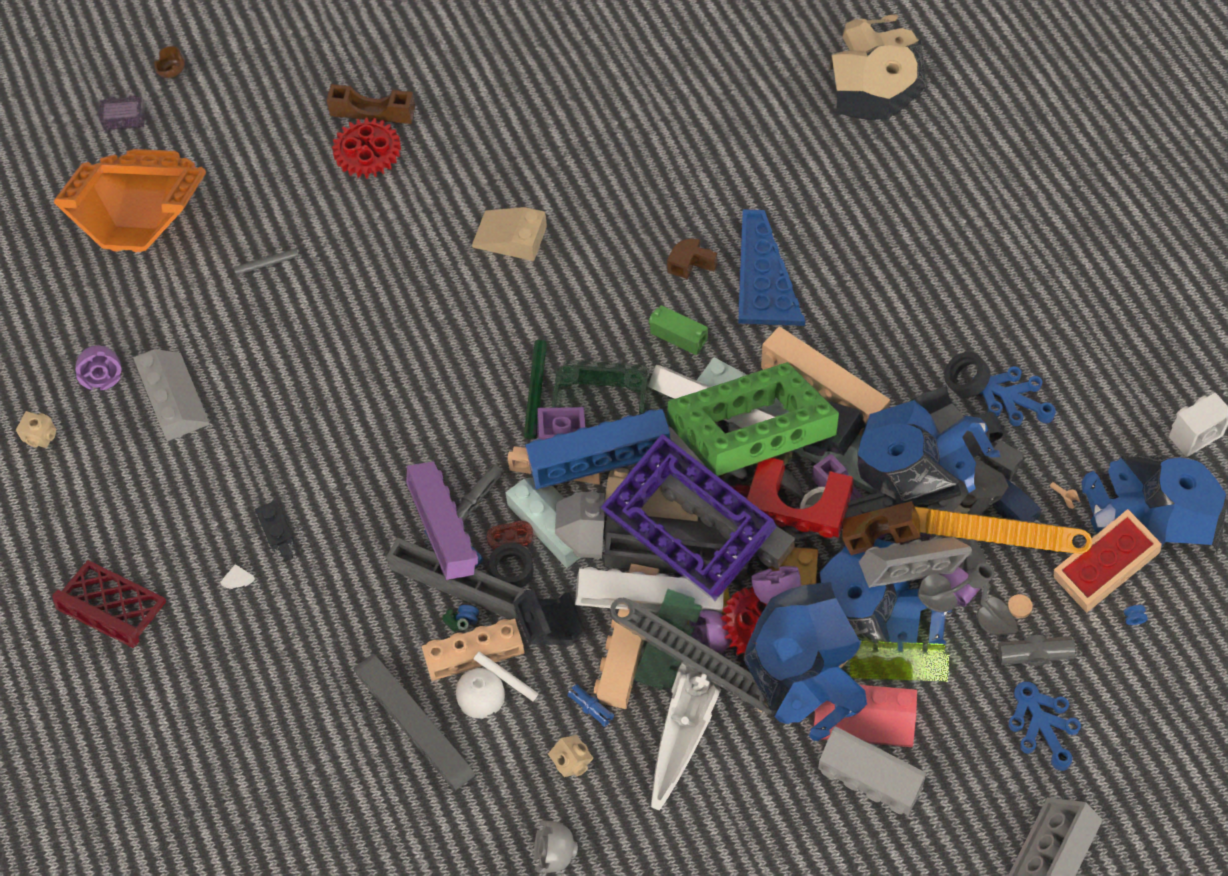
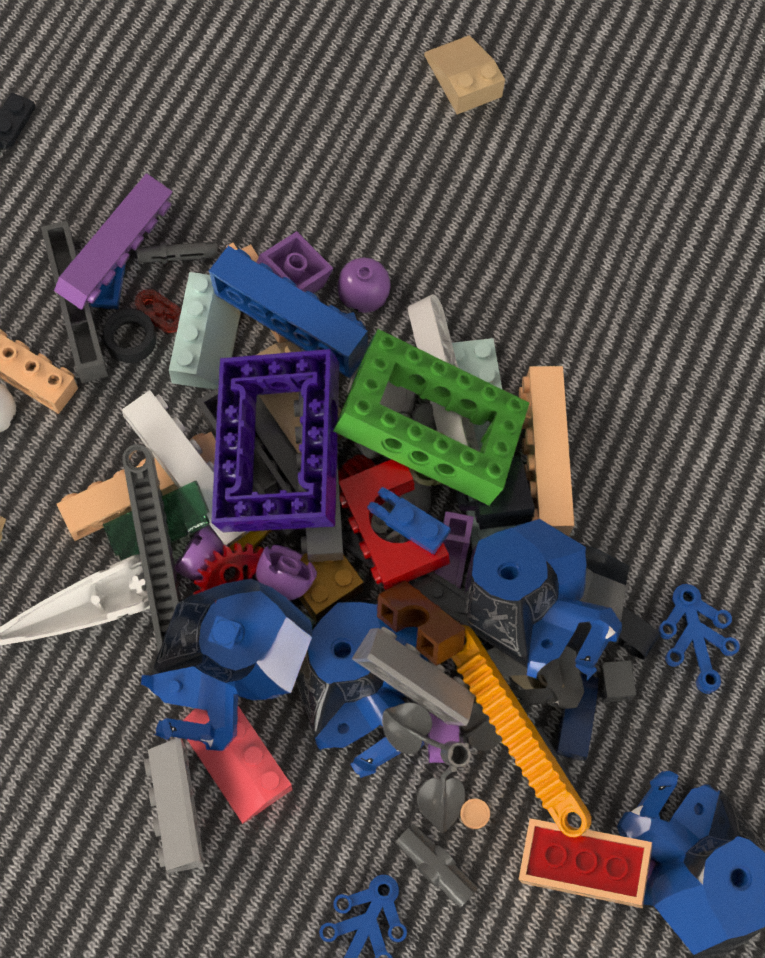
camera: 40 degrees right, 10 degrees up
(450, 620) = (35, 331): dark green arm -> none
(469, 613) = (51, 338): blue bush -> none
(506, 676) = (15, 415): white bar -> none
(535, 389) = (333, 210): dark green axle -> none
(549, 619) = (93, 406): black panel -> none
(581, 523) = (198, 356): light grey wedge -> none
(590, 705) = (48, 508): blue pin -> none
(606, 401) = (364, 285): none -> medium lavender cylinder
(632, 376) = (405, 281): clear green windscreen -> none
(678, 329) = (492, 286): bright green brick -> none
(689, 254) = (577, 232): reddish brown brick -> none
(764, 282) = (610, 323): blue wing -> none
(811, 481) = (411, 521): none -> blue hinge
(900, 665) = (318, 753): clear neon green windscreen -> none
(958, 363) = (678, 592): black tyre -> none
(1068, 496) = (633, 770): light nougat hand -> none
(1135, 615) = (557, 933): blue bush -> none

